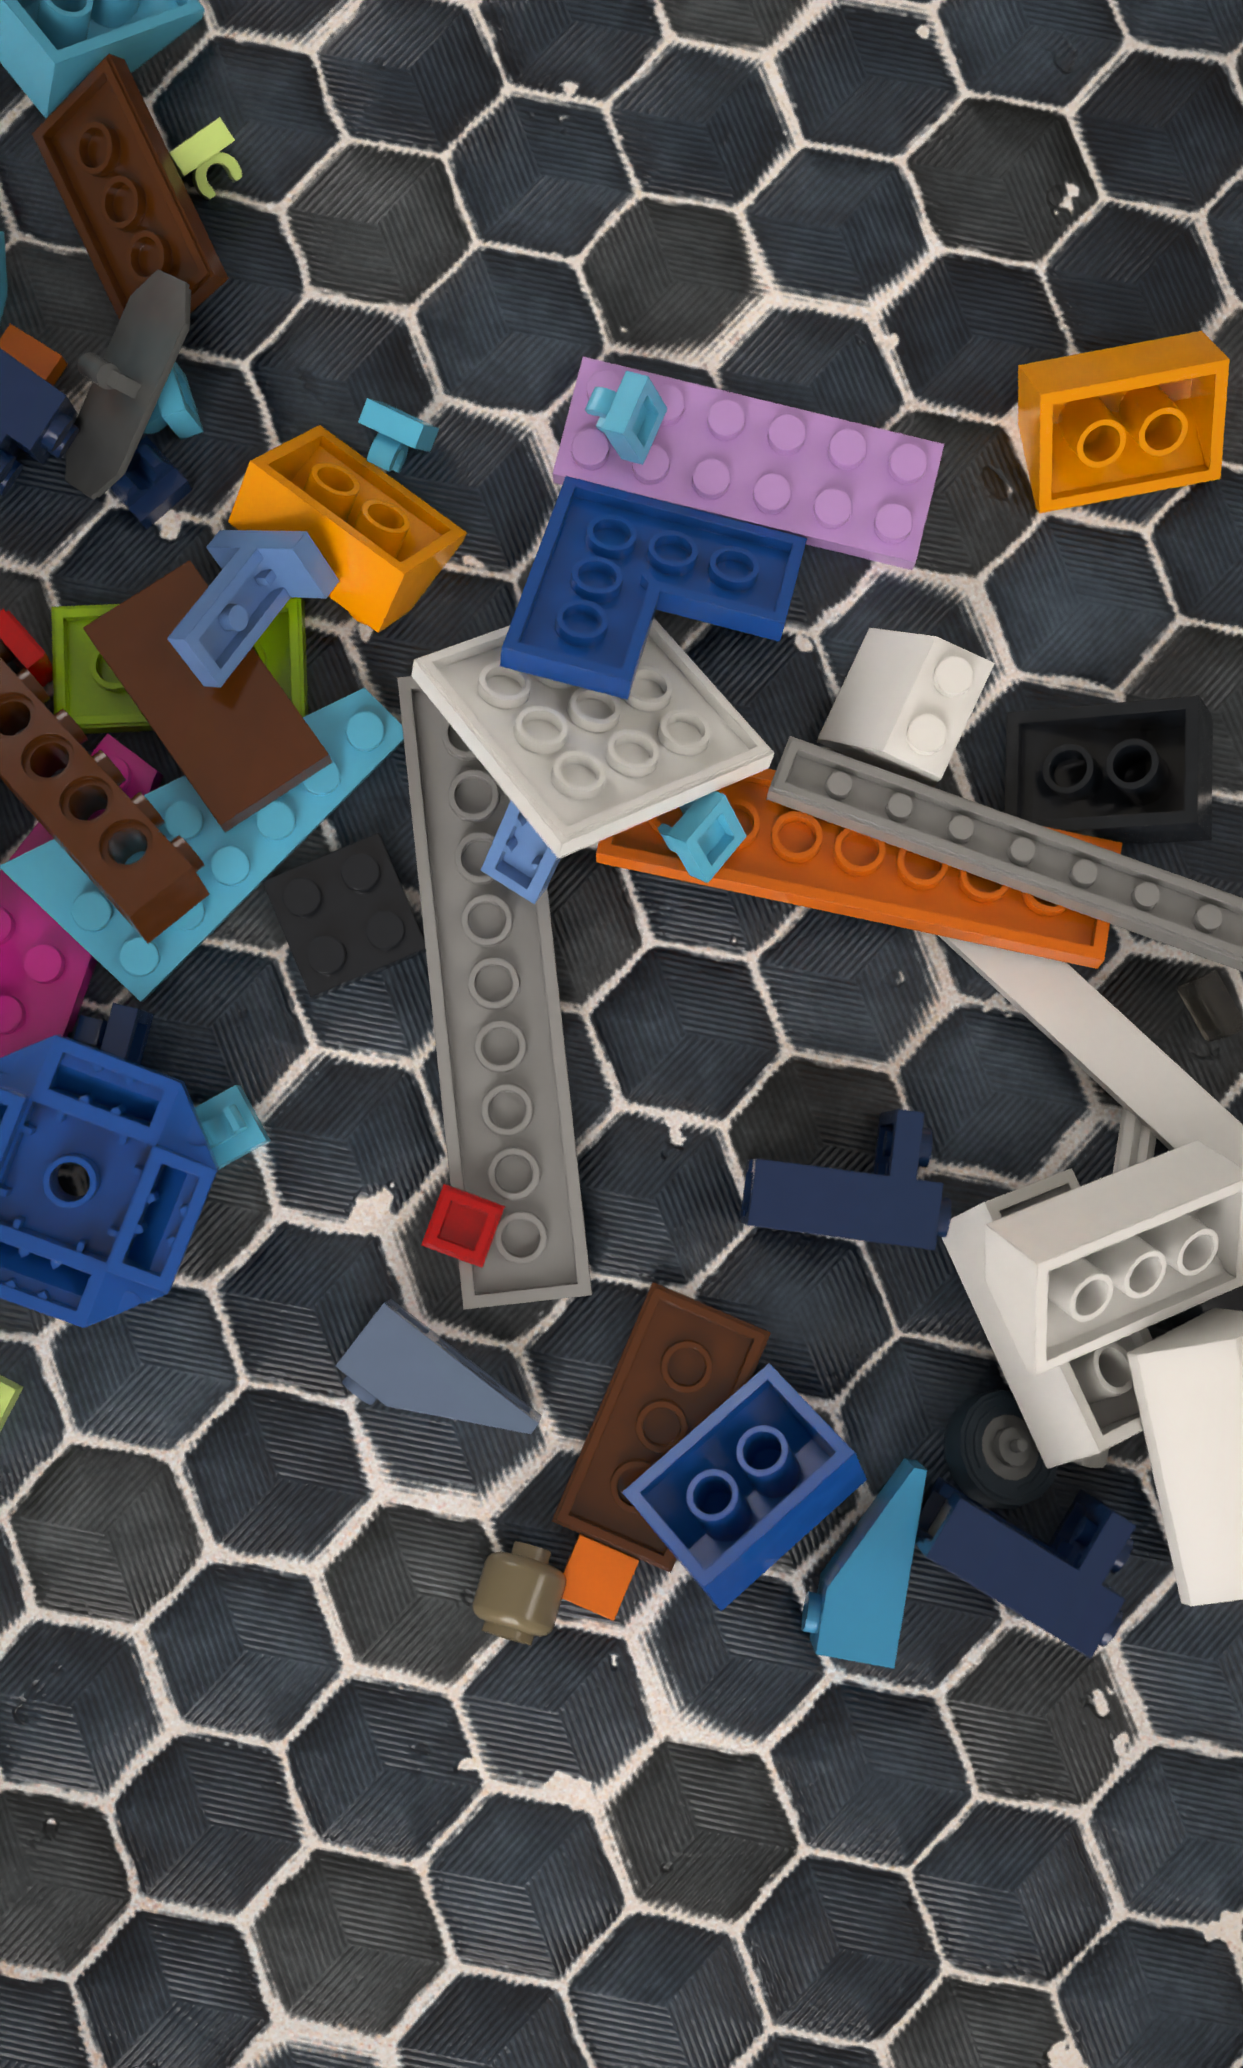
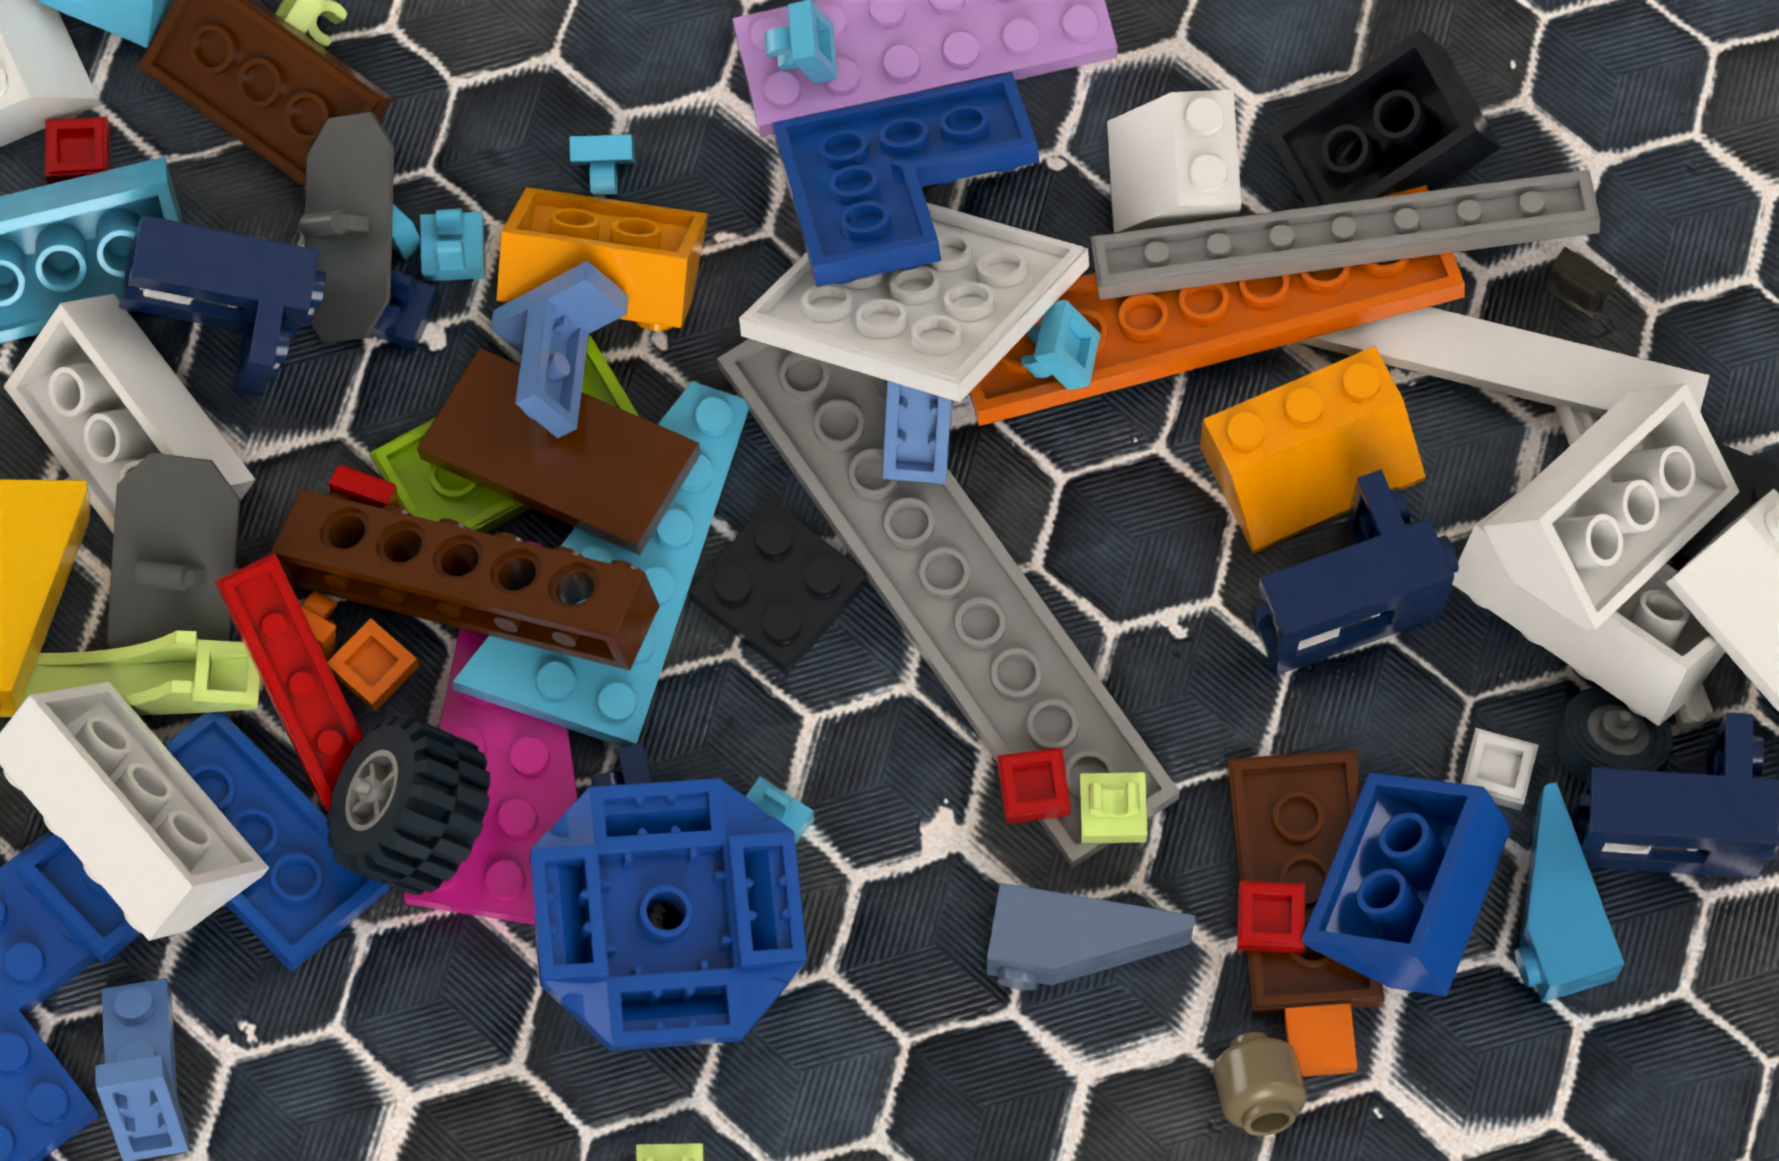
camera: 25 degrees left, 15 degrees down
(224, 447) = (452, 245): none -> medium azure tile
(521, 1283) = (1113, 807): none -> yellowish green tile
(609, 1450) = (1270, 916): none -> red tile
(884, 1038) = (1299, 448): none -> light orange slope
(887, 1413) = (1500, 766): none -> white tile

